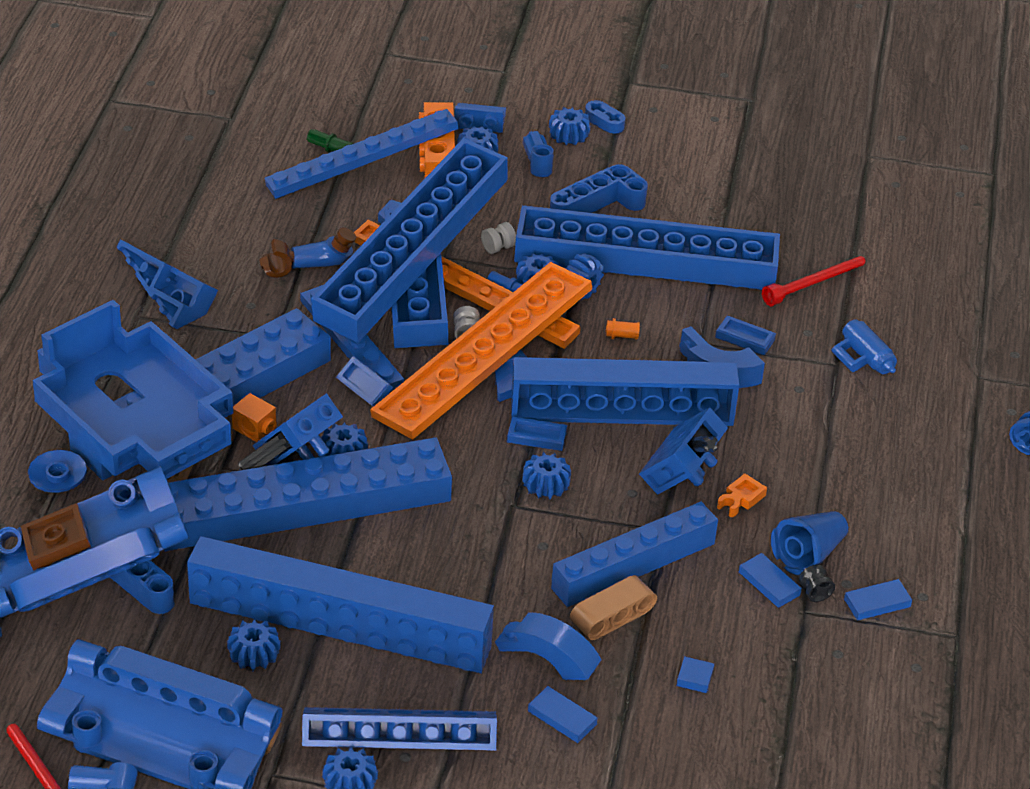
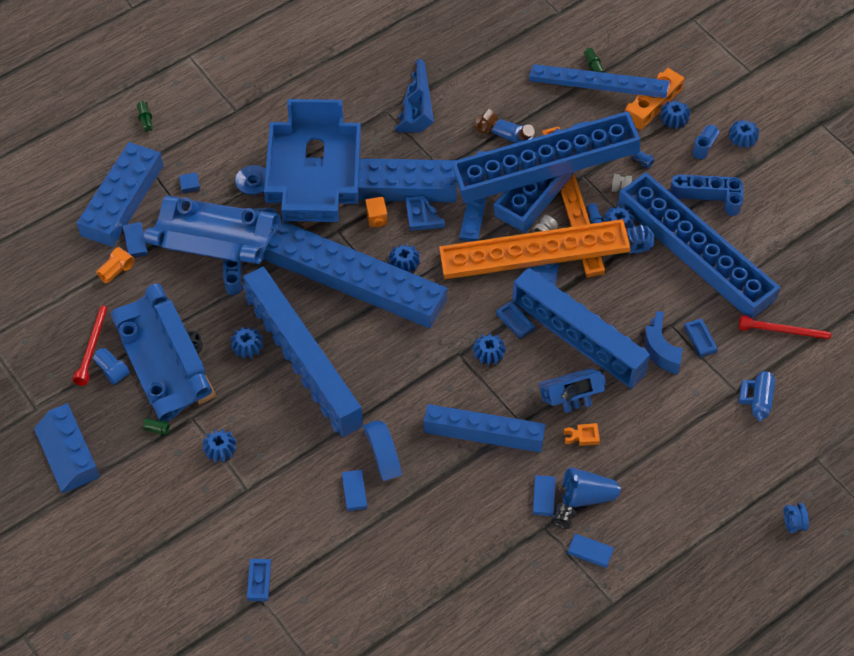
camera: 45 degrees right, 15 degrees up
(55, 536) = (204, 218): reddish brown plate -> none
(294, 435) = (379, 237): blue piece -> none
(304, 388) = (421, 214): none -> blue wing
(364, 381) = (454, 227): tile -> none
(399, 728) = (263, 439): blue brick -> none
(480, 115) = (696, 95): blue bracket -> none
(495, 204) = (646, 160): none -> blue pin
(605, 117) = (779, 139): blue beam -> none
(613, 607) = (441, 450): medium nougat beam -> none
(622, 329) = (626, 284): orange pin -> none
(695, 674) = (444, 519): blue tile -> none

